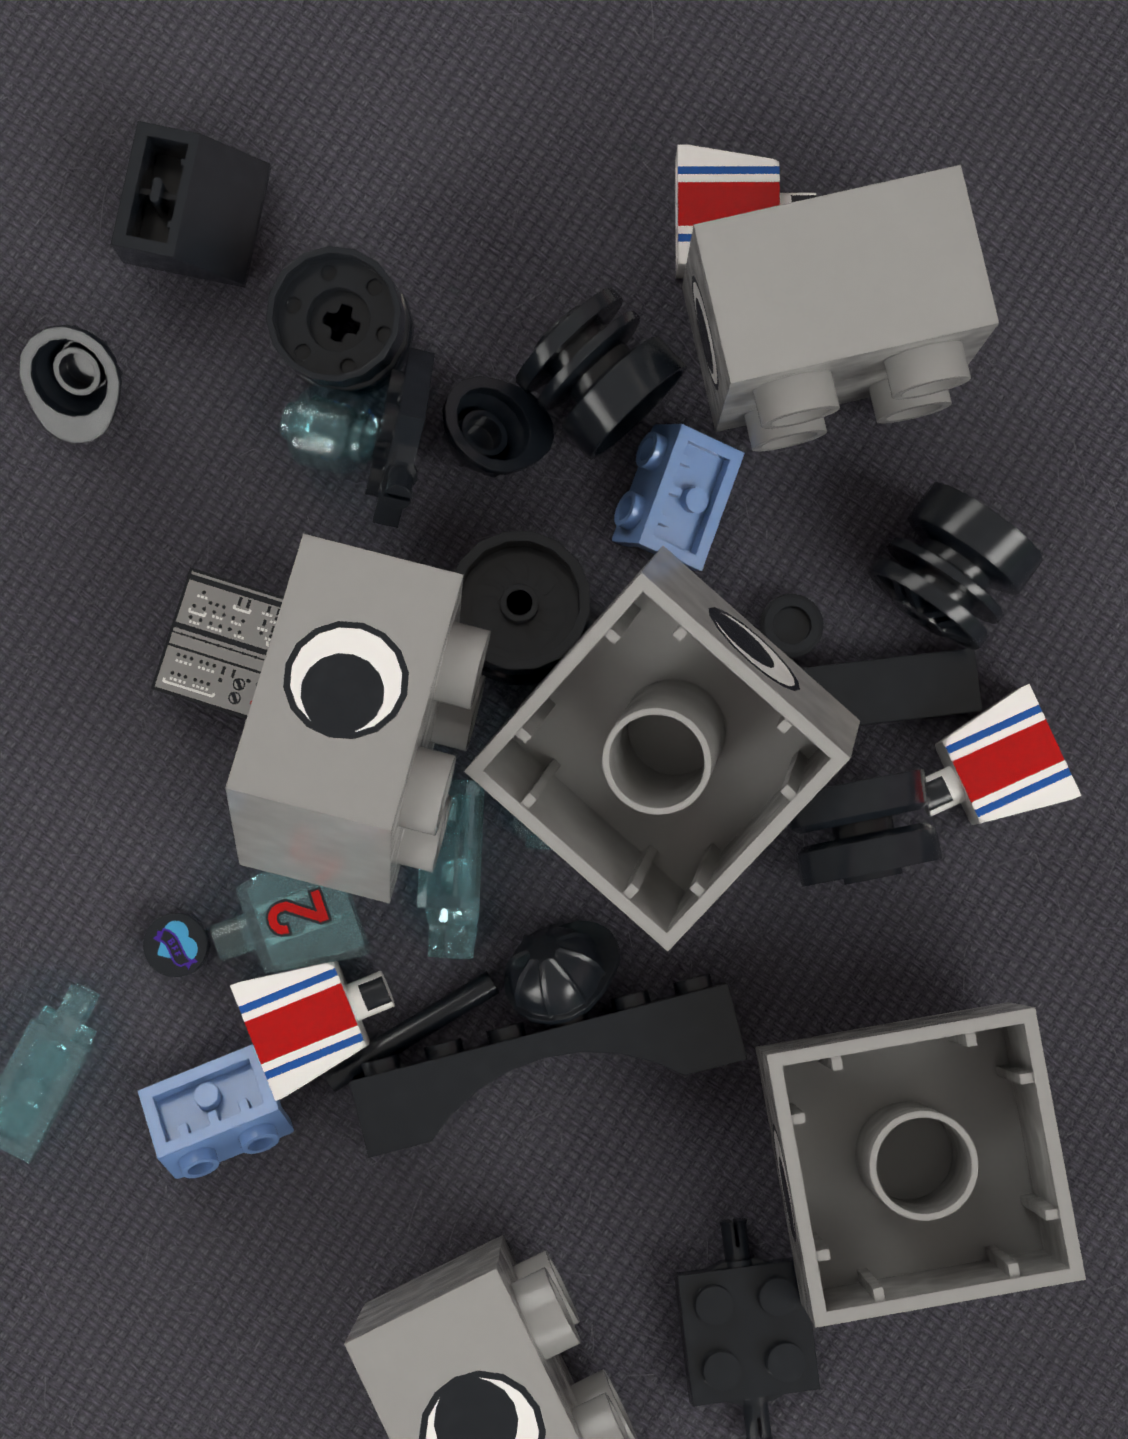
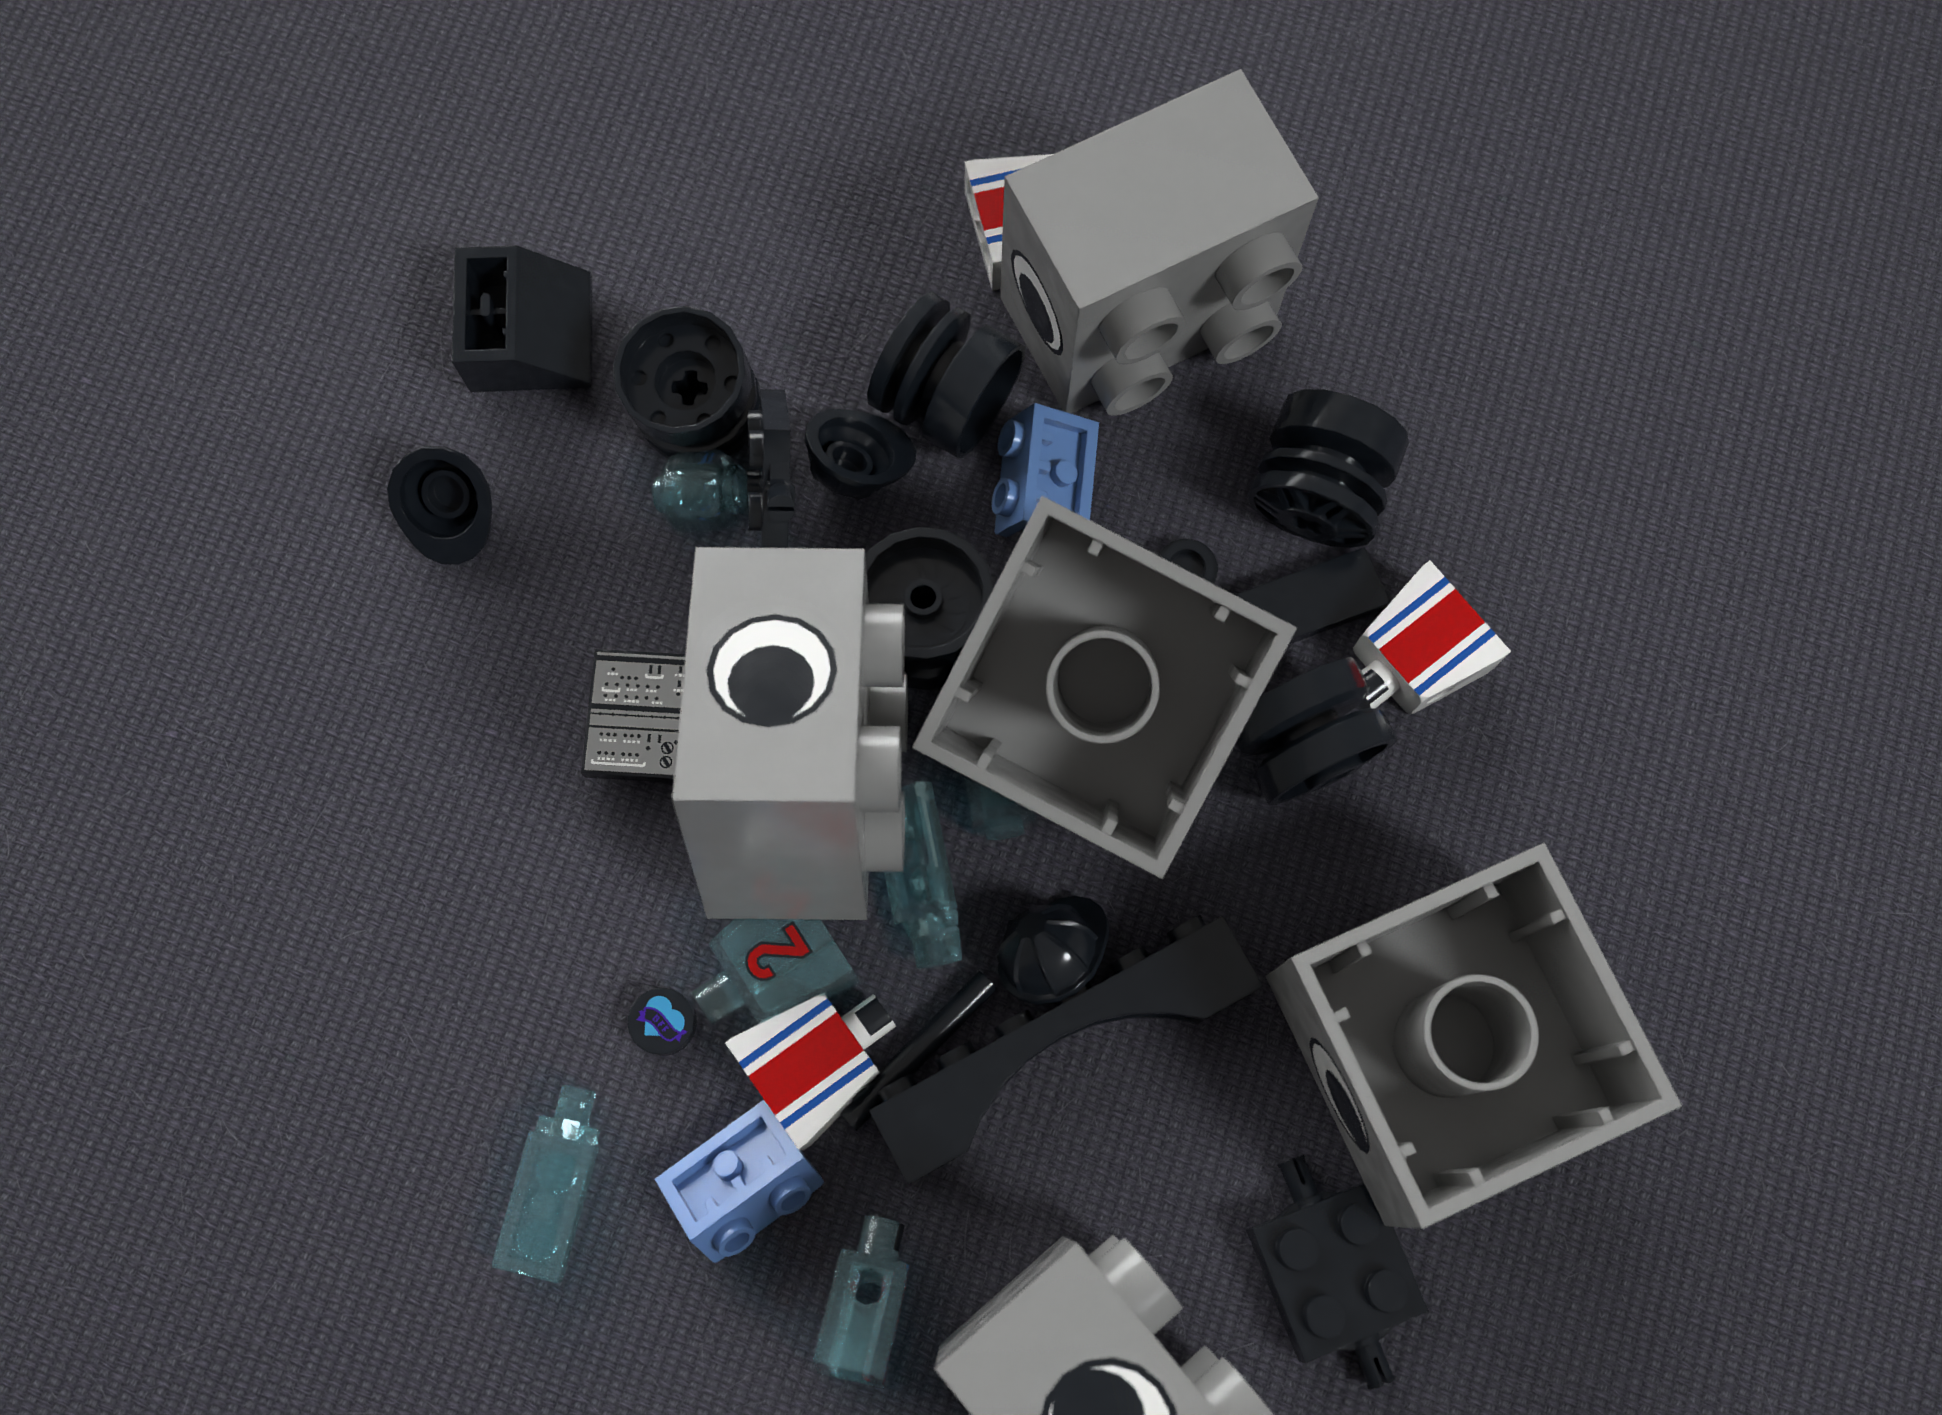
camera: 15 degrees left, 10 degrees down
(295, 1285) = (857, 1336): none -> clear light blue torso

